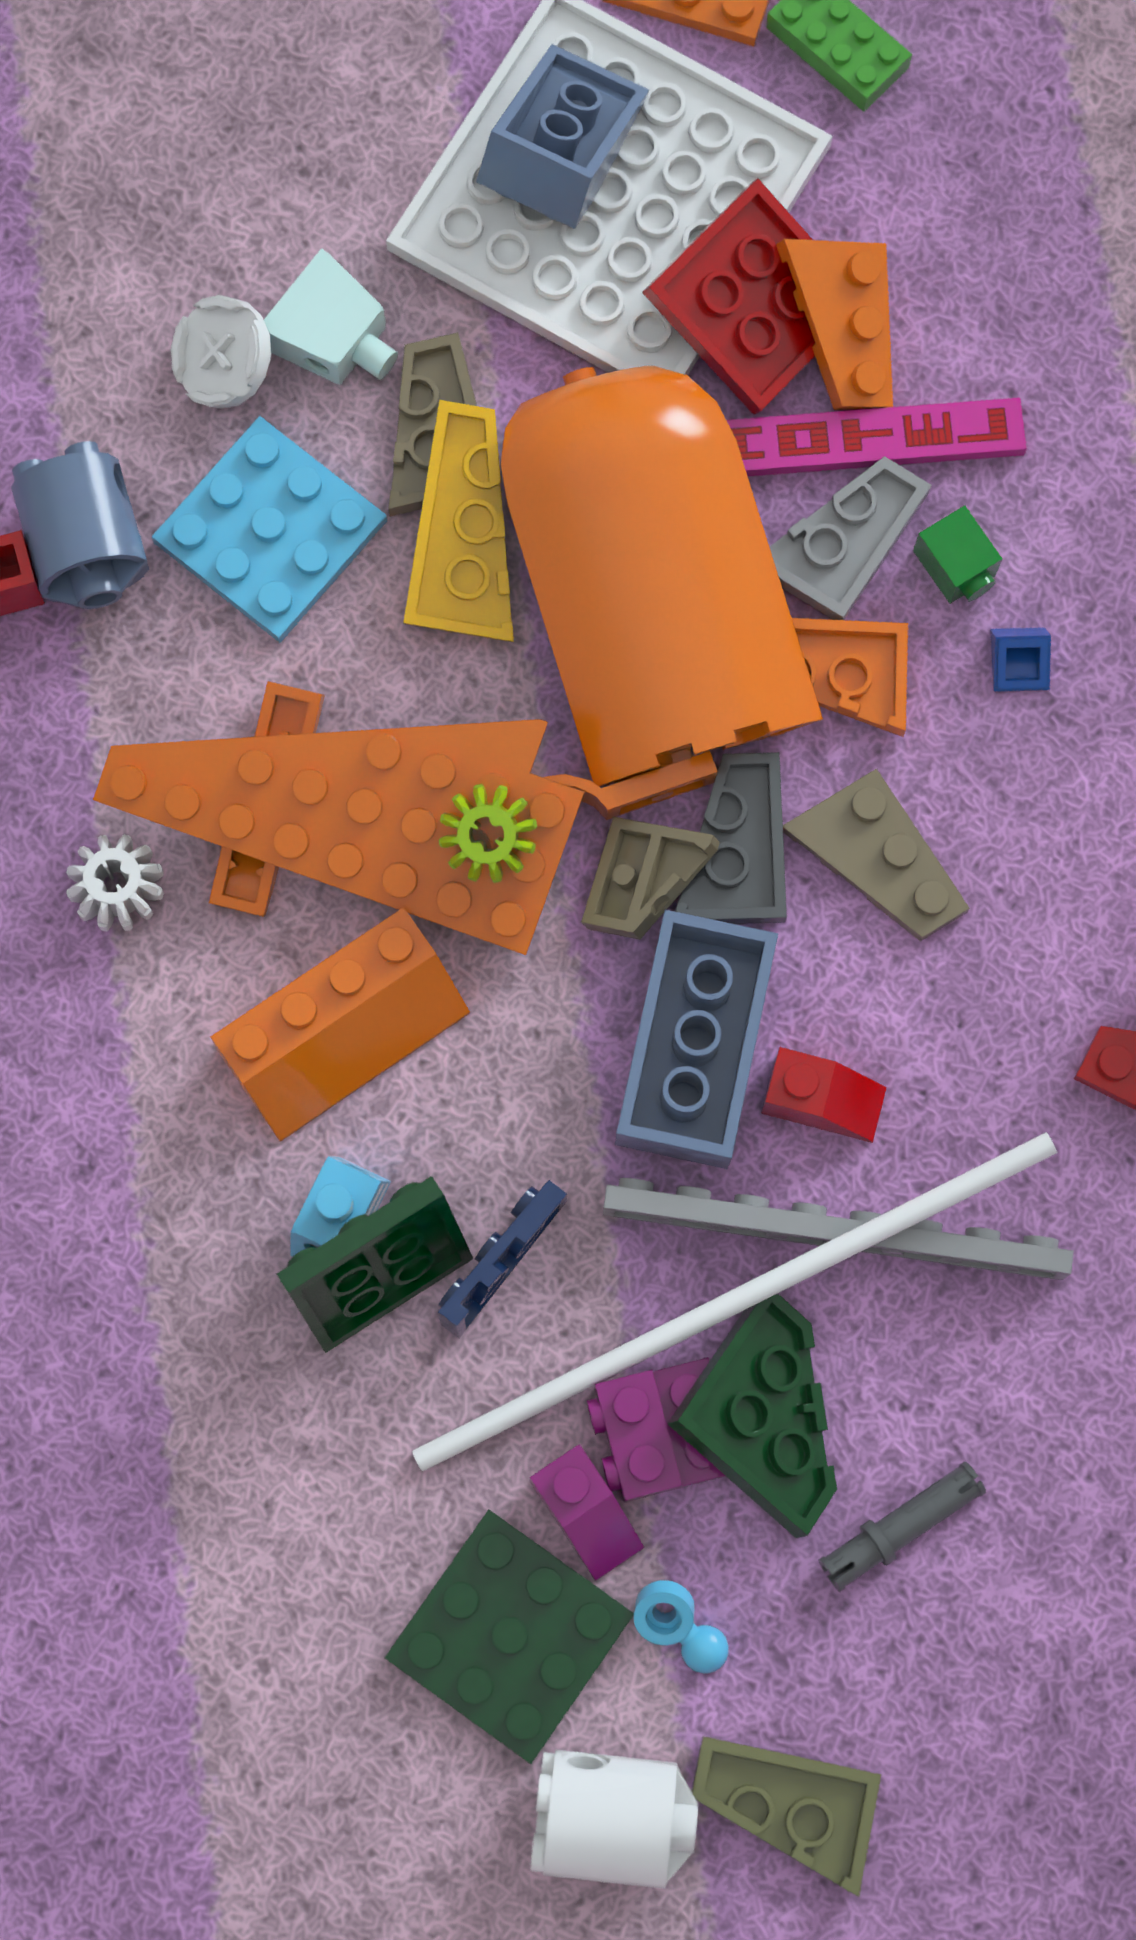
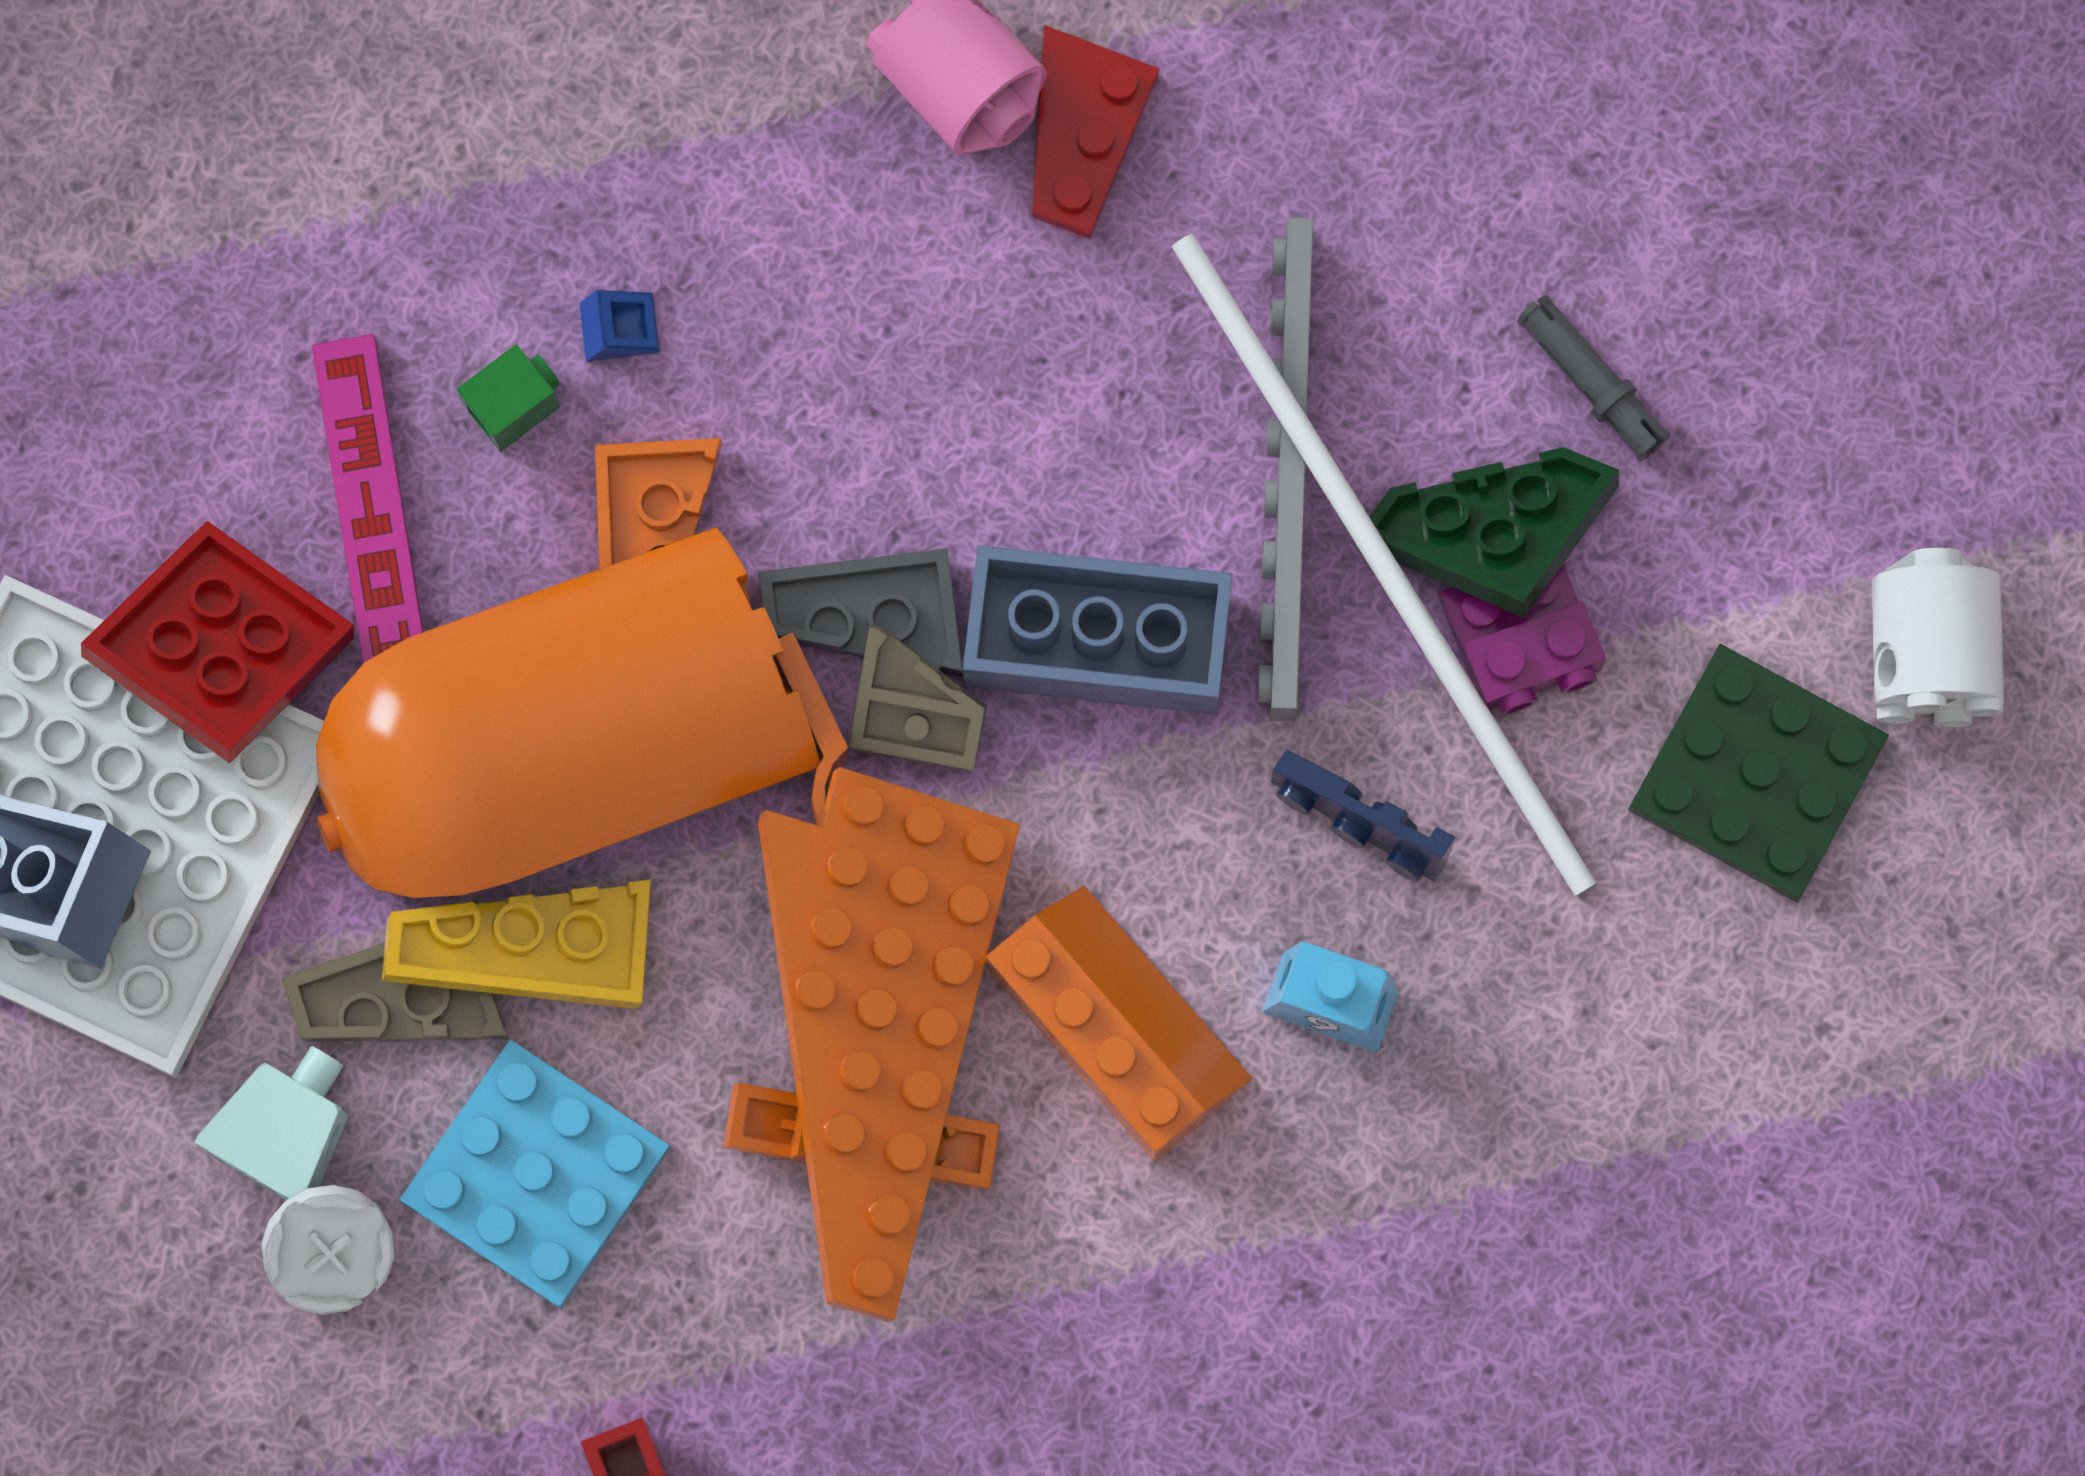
camera: 90 degrees left, 0 degrees up
(79, 526) = (568, 1379): sand blue cylinder -> none
(136, 871) = (993, 1310): white gear -> none
(376, 1263) = (1390, 937): dark green plate -> none
(477, 849) = (896, 884): lime gear -> none
(586, 1512) = (1617, 704): magenta slope -> none
(702, 1646) = (1743, 573): medium azure plate -> none
(793, 1803) = (1891, 464): olive wing -> none
(823, 1095) = (1141, 497): red slope -> none
(846, 540) = (496, 520): light grey wing -> none
(847, 308) = (223, 538): orange wing -> none
(881, 853) = (859, 457): dark tan wing -> none

